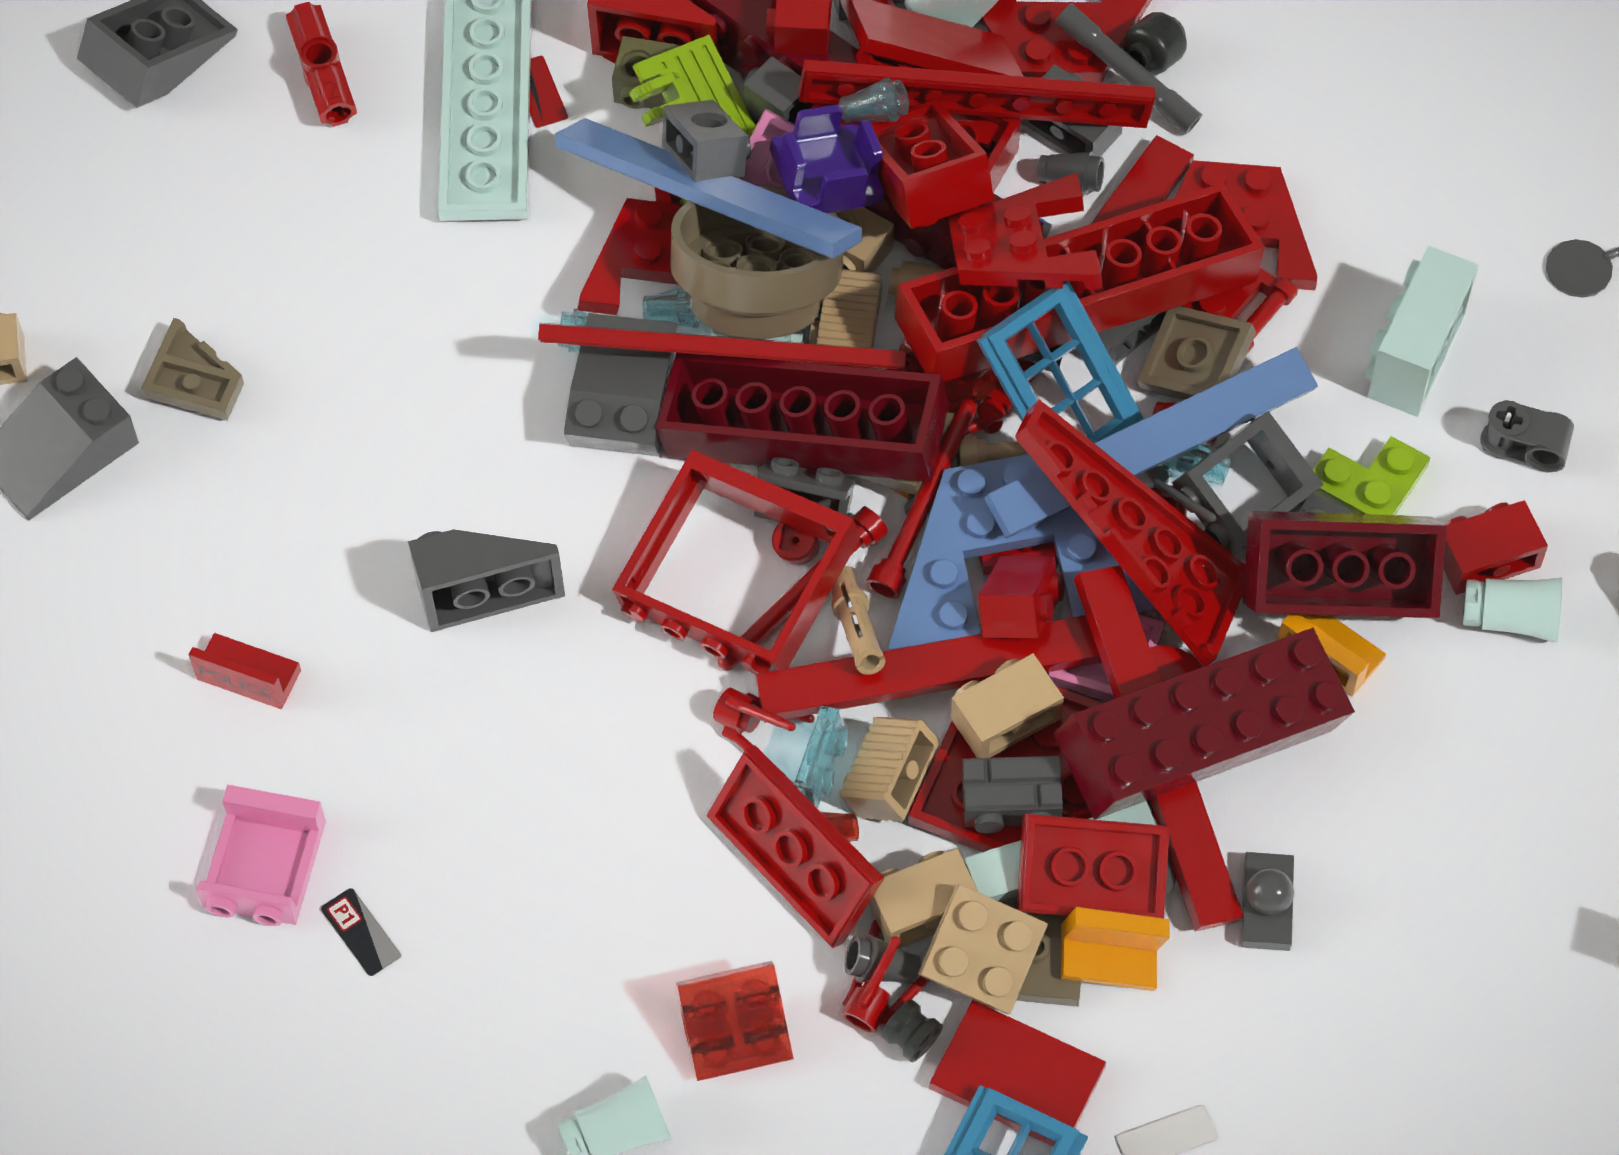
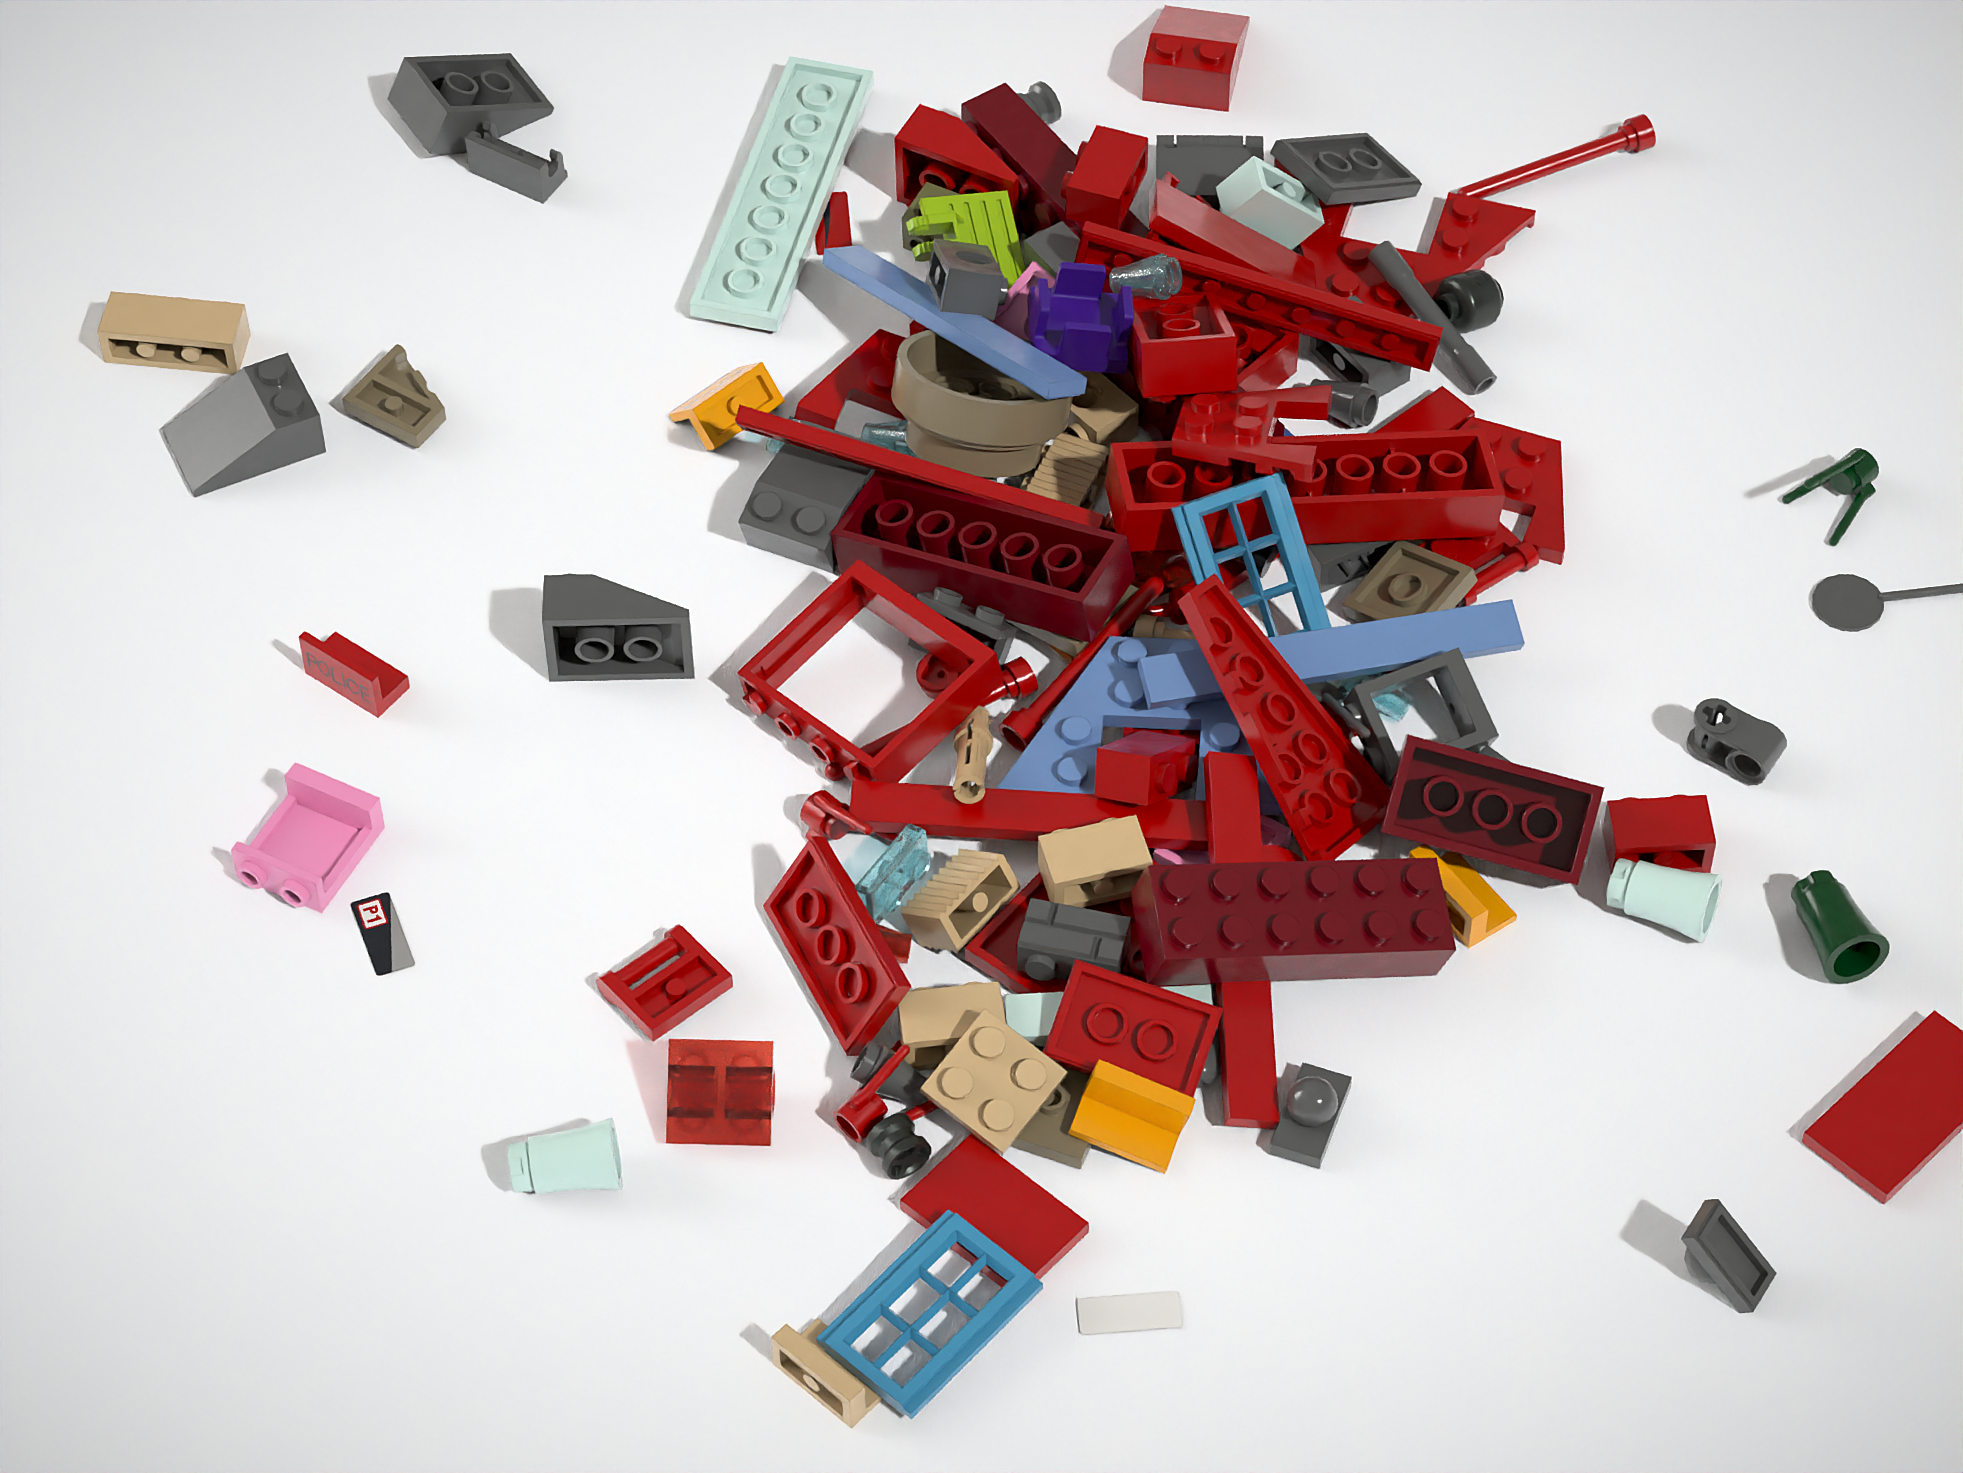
camera: 15 degrees right, 10 degrees down
(221, 101) = (514, 166): none -> dark grey hinge
(321, 64) = (622, 151): red piece -> none
(508, 306) = (716, 407): none -> light orange panel
(655, 925) = (672, 992): none -> red plate
(1372, 490) = (1573, 754): lime plate -> none
(1420, 330) = (1651, 615): light aqua brick -> none
(1544, 143) = (1847, 476): none -> dark green plant

